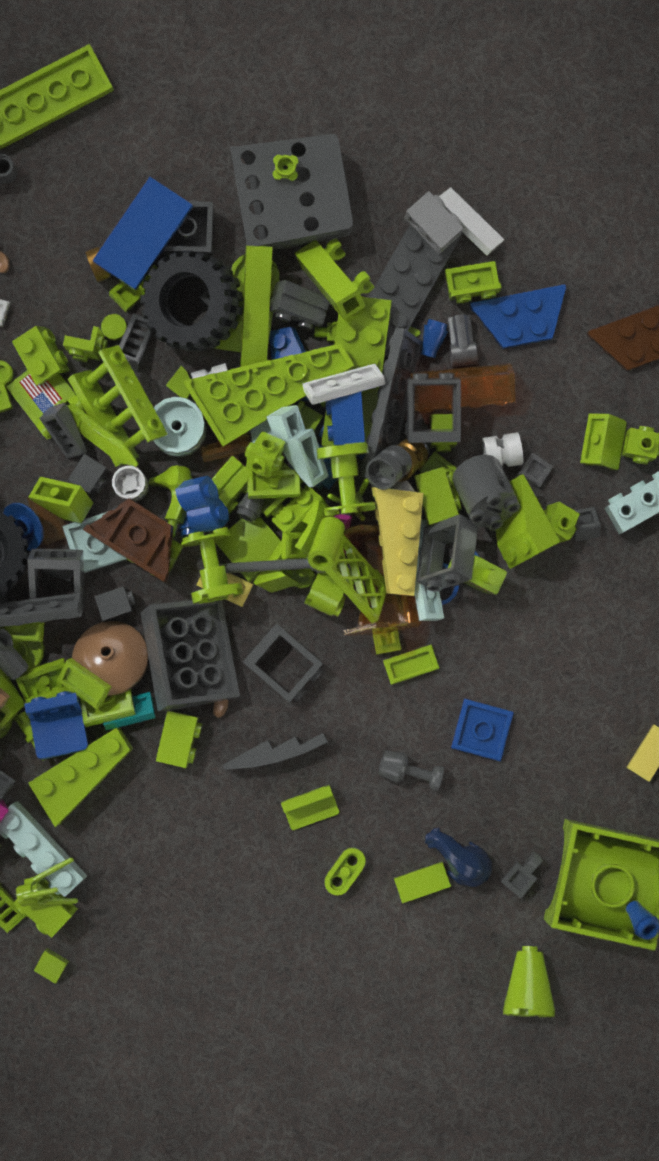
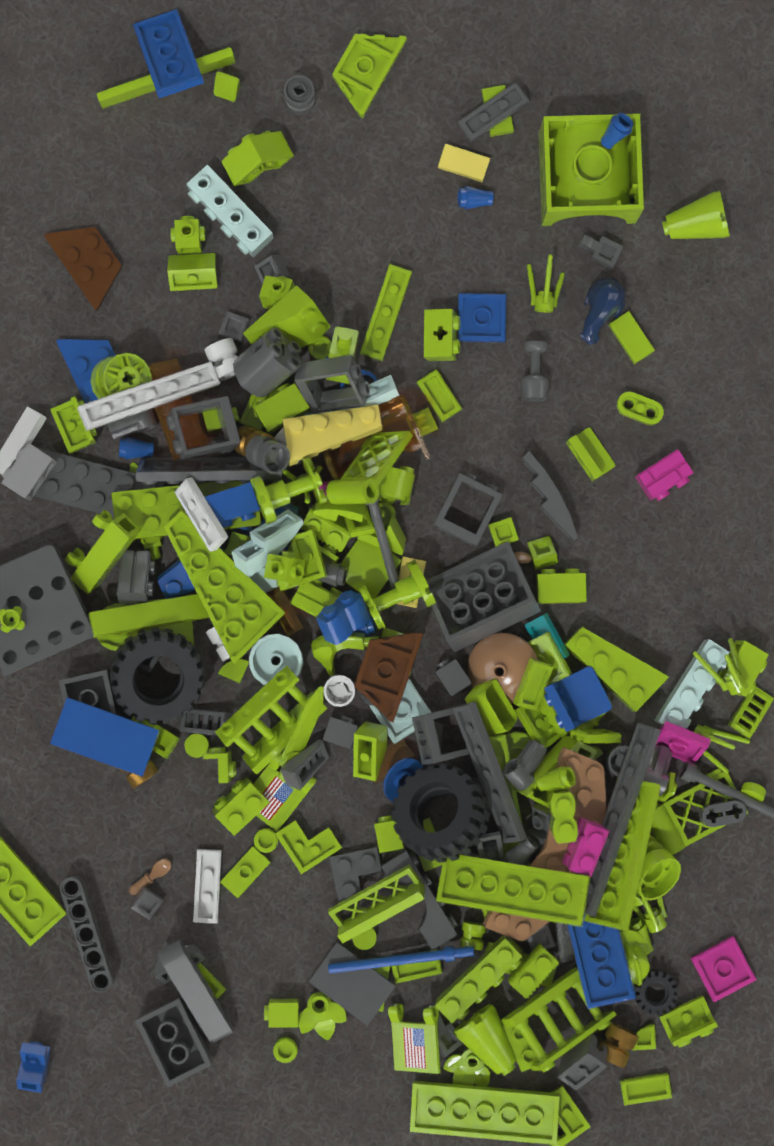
camera: 110 degrees left, 0 degrees up
(14, 734) = (595, 735): none -> lime tile
(75, 643) = (493, 707): none -> lime piece
(220, 730) = (542, 552): none -> lime slope
(251, 694) = (503, 531): none -> lime plate
(267, 878) = (664, 475): none -> dark pink brick
(480, 360) = (148, 396): none -> white tile
(483, 800) = (544, 301): none -> lime plant
(486, 680) = (434, 323): none -> lime brick
(490, 552) = (320, 348): none -> lime tile
(512, 631) = (386, 312): none -> lime tile
(515, 328) = (109, 372): none -> lime wheel
(610, 754) = (472, 197): none -> blue cone

